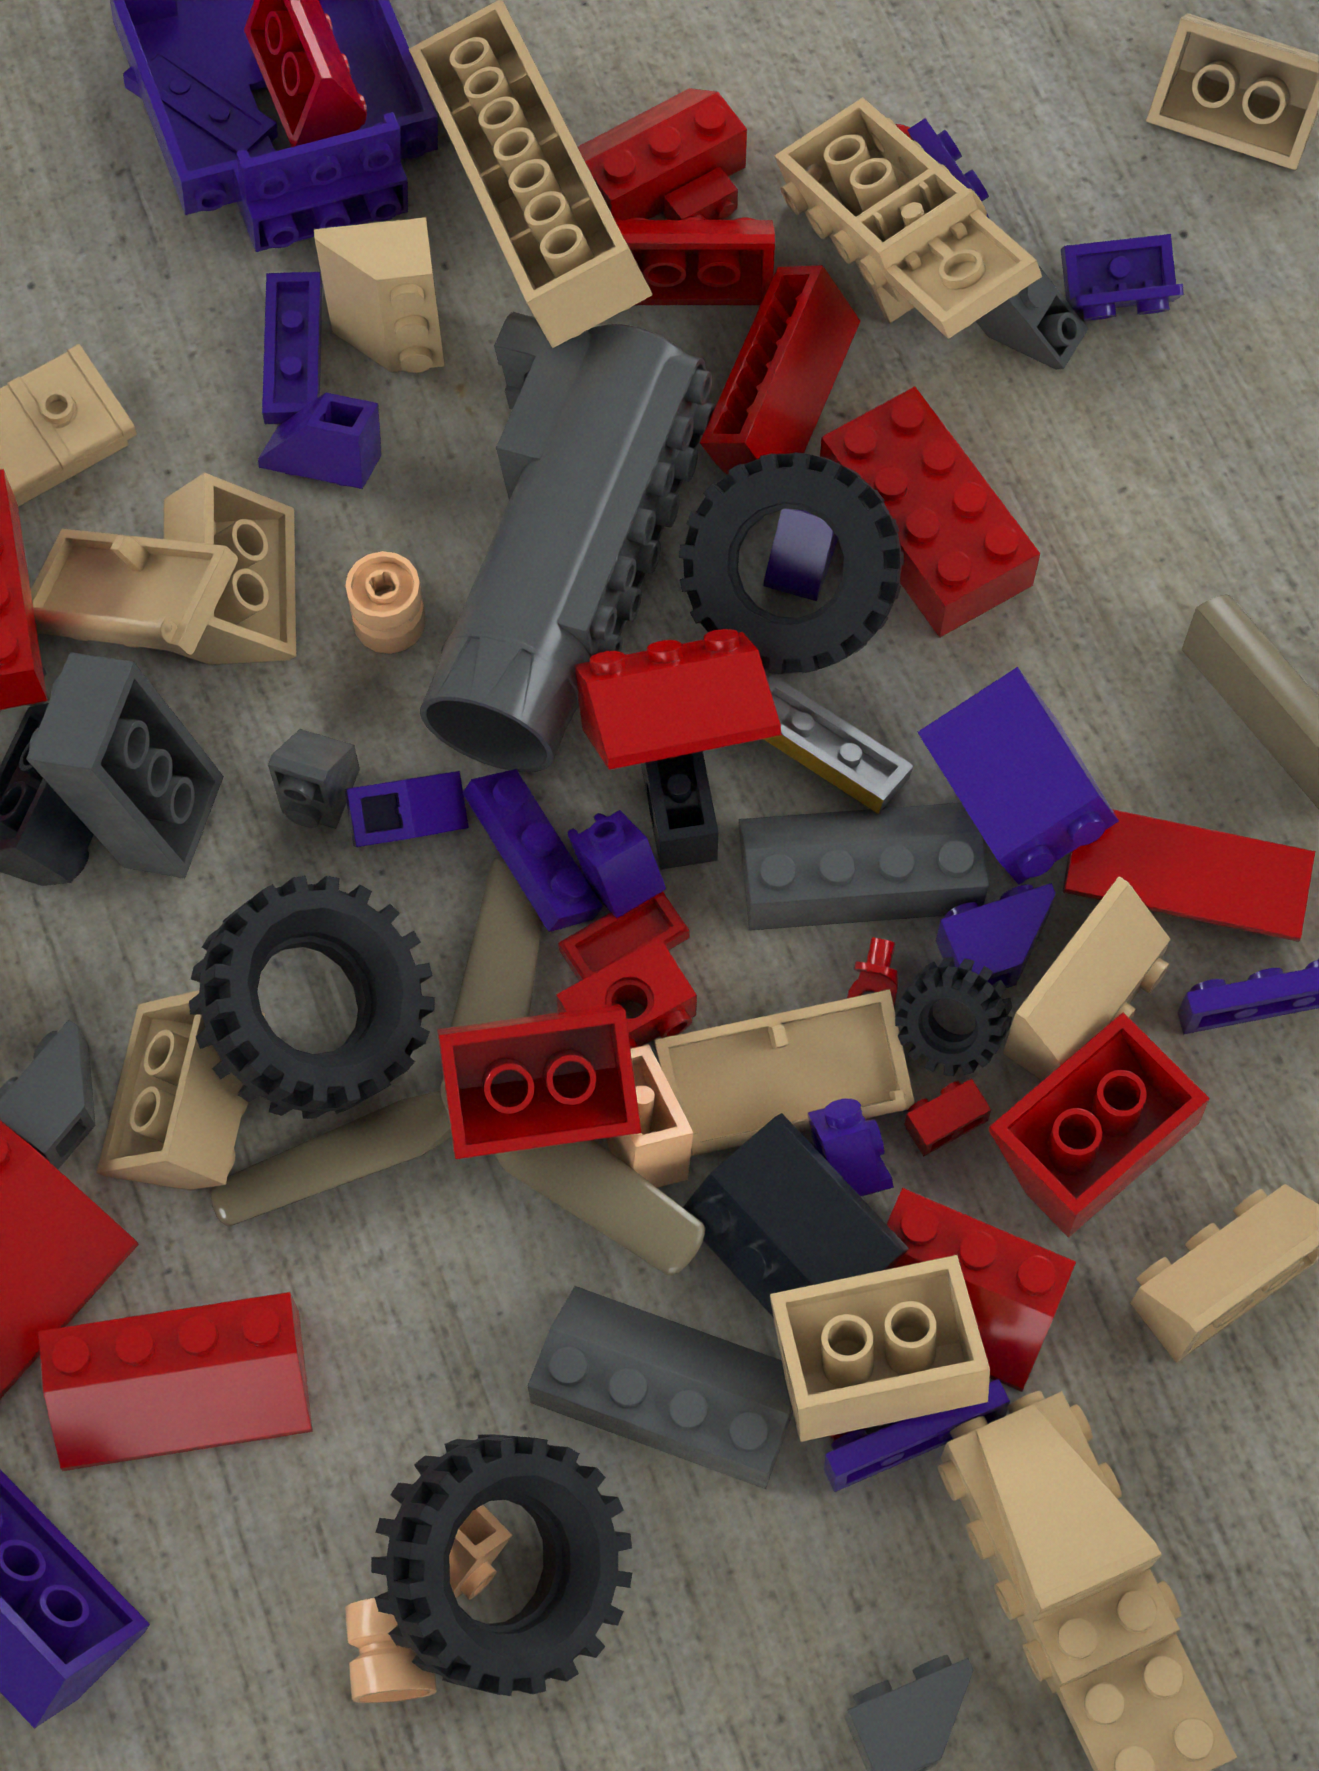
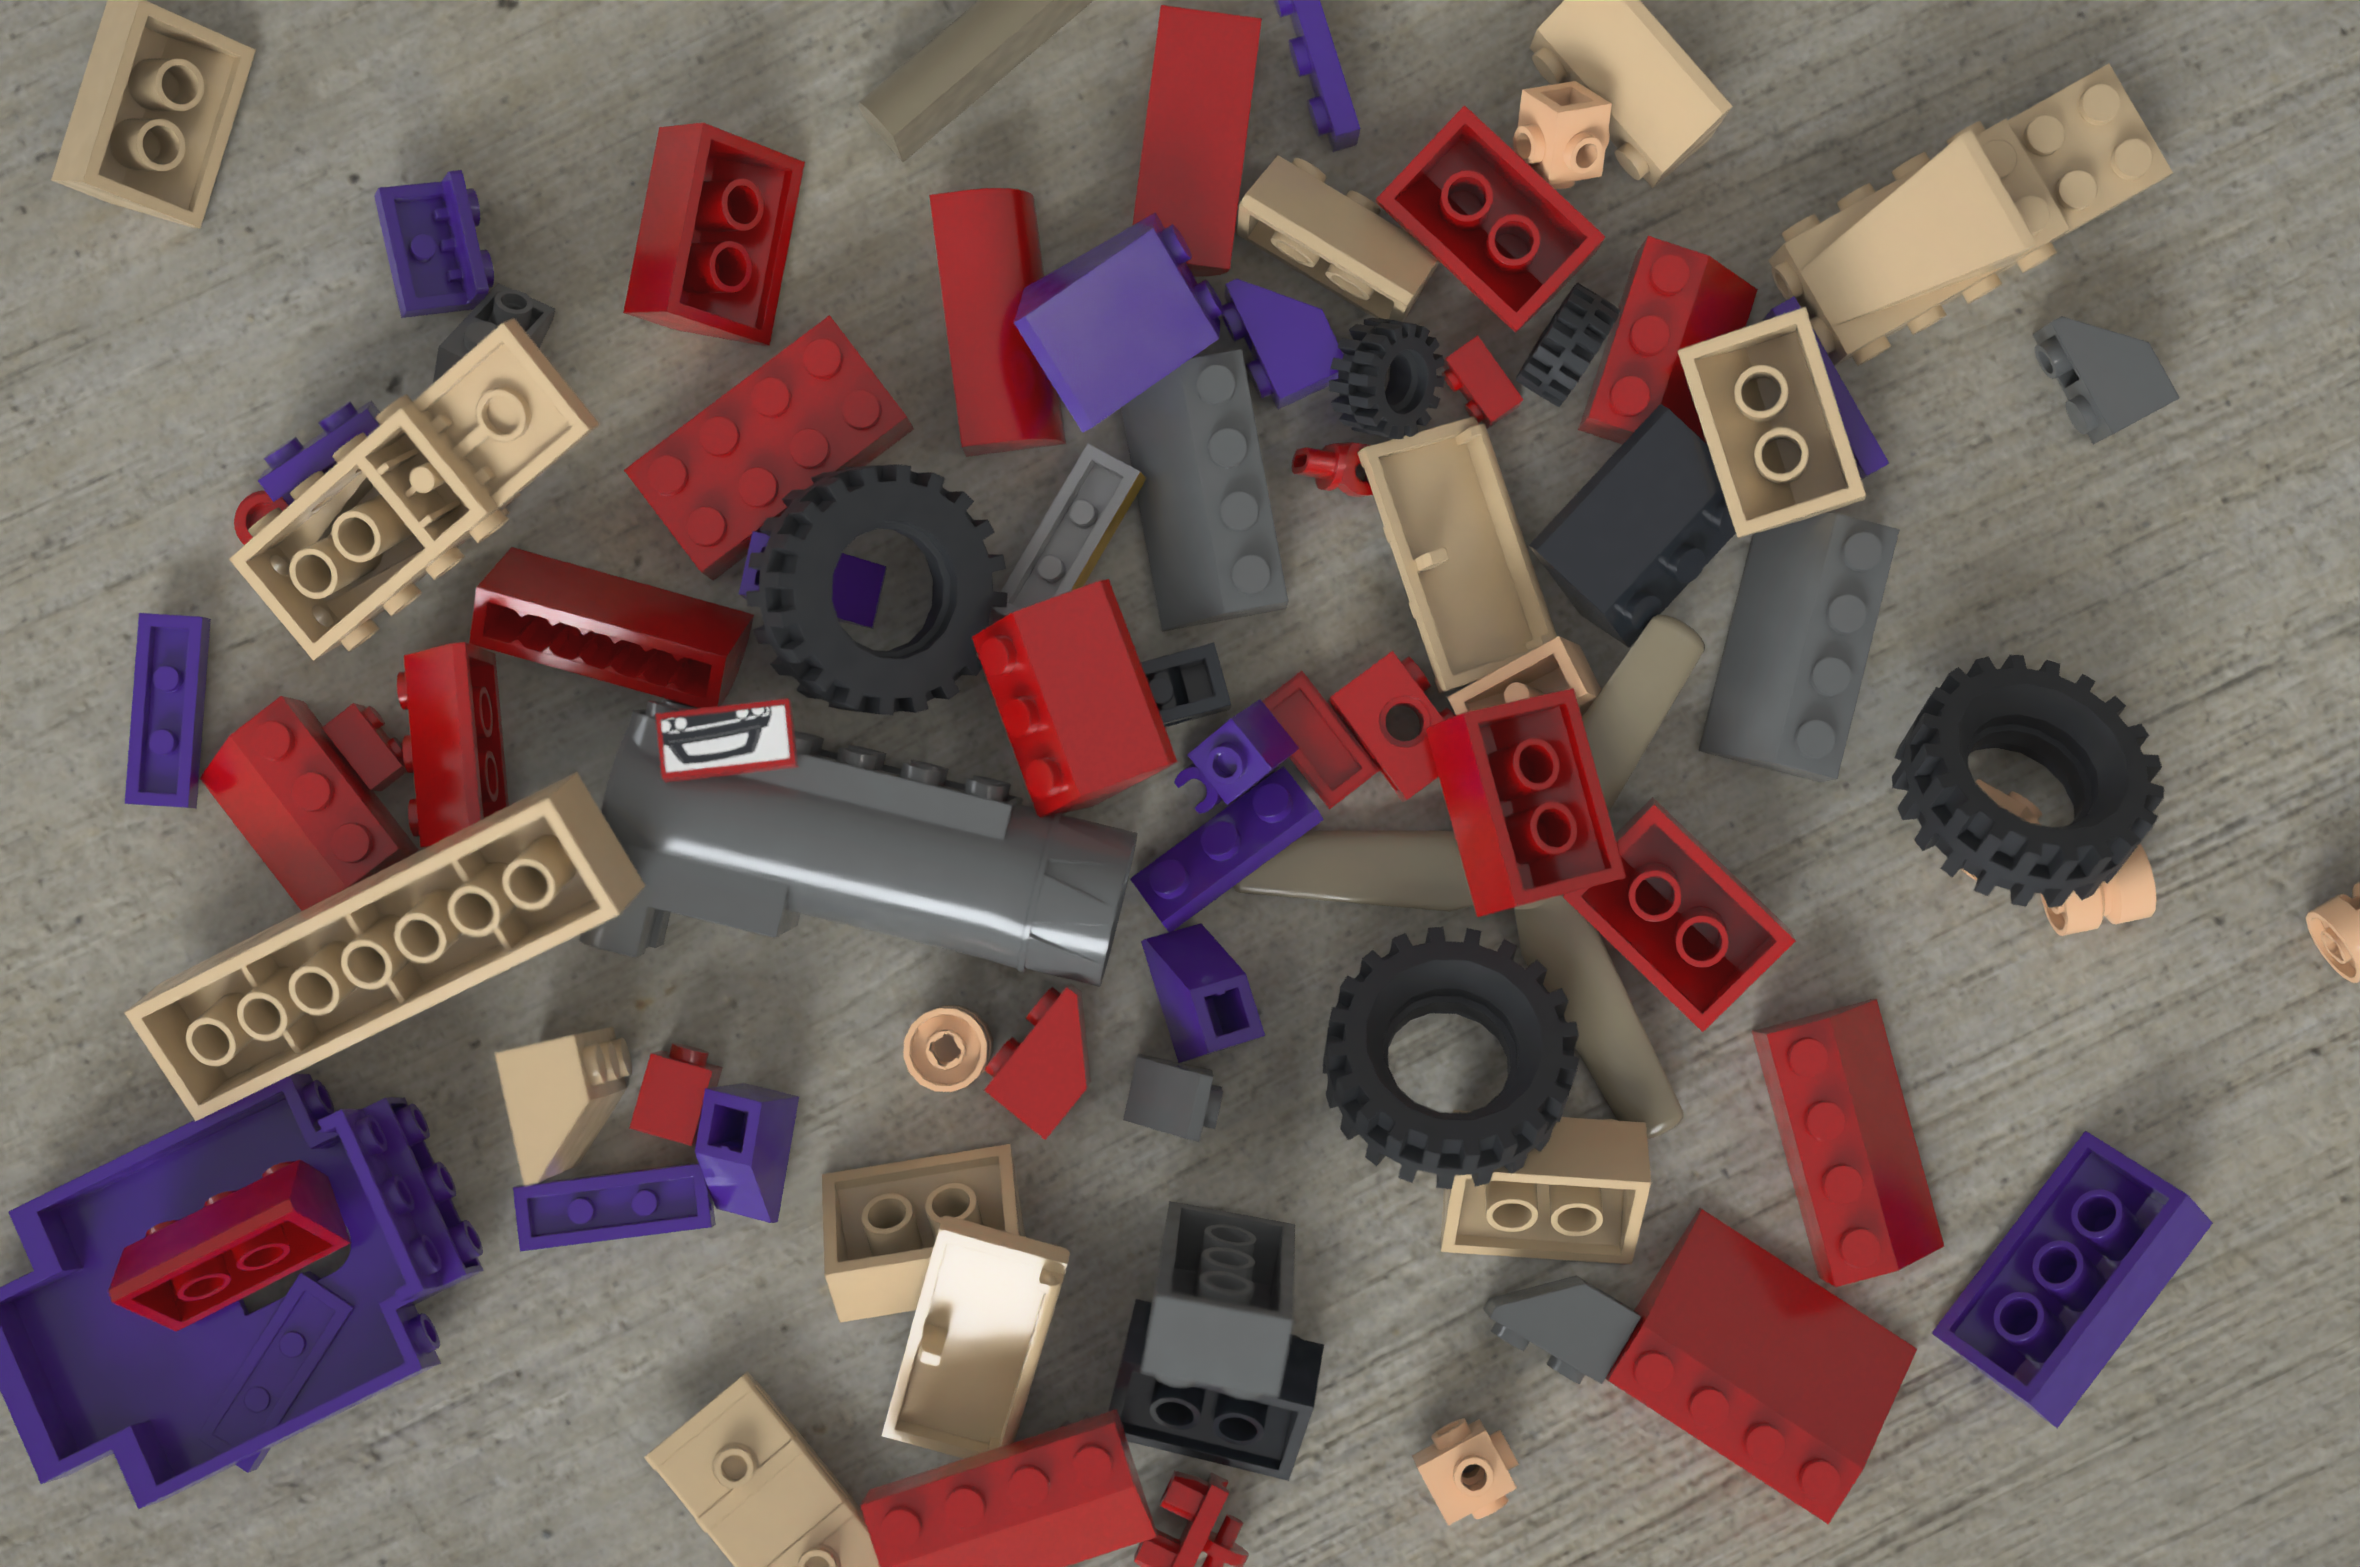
camera: 95 degrees left, 20 degrees up
(358, 672) = (1049, 1068): none -> red slope
(387, 385) = (674, 1093): none -> red brick
(418, 1234) = (1683, 917): none -> red slope
(668, 414) = (726, 740): none -> tile
(746, 67) = (167, 710): none -> dark purple plate
(851, 1145) = (1541, 477): dark purple brick -> none
(975, 1181) = (1568, 344): none -> black tyre
(1091, 691) = (985, 261): none -> red brick
(1119, 487) = (714, 234): none -> red slope
(1179, 1193) = (1563, 132): none -> light nougat brick

